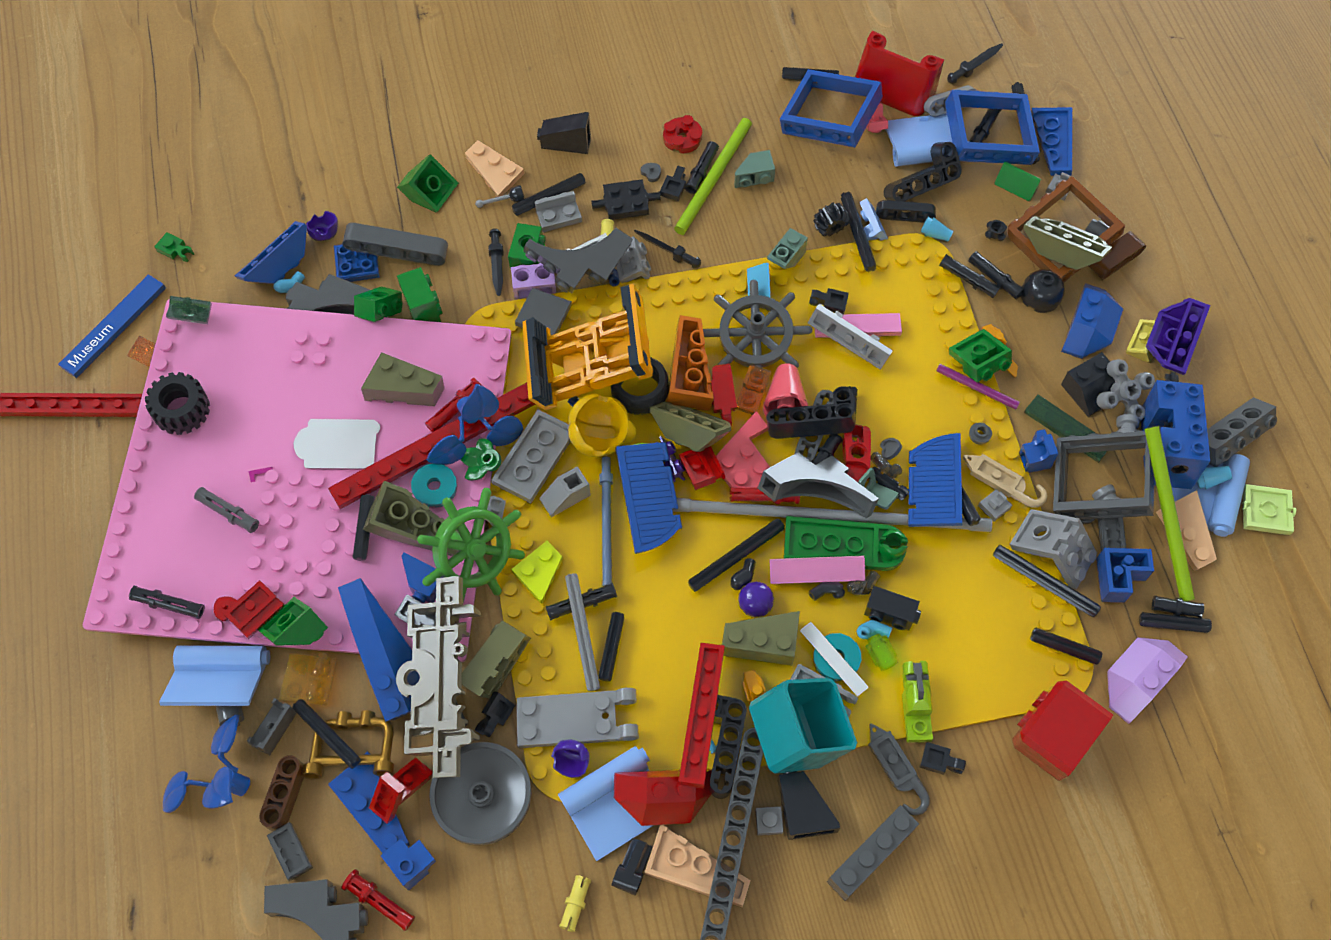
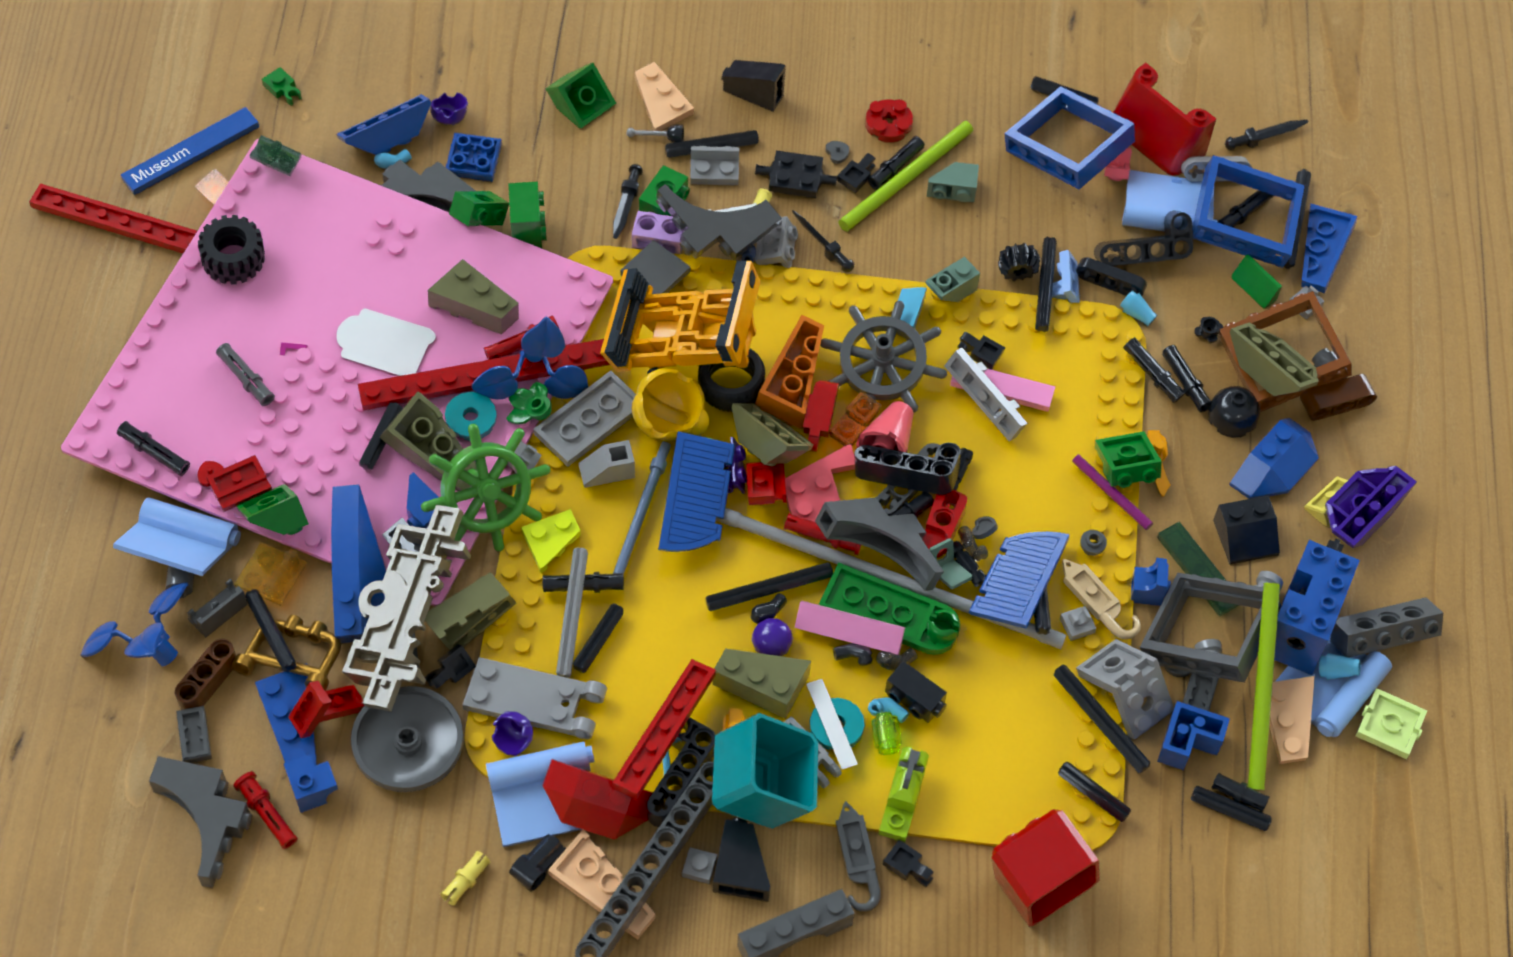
camera: 15 degrees right, 5 degrees down
(395, 244) = (521, 150): dark grey beam -> none
(1125, 389) = (1269, 545): light grey gear -> none
(1141, 675) = (1168, 849): lavender wedge -> none

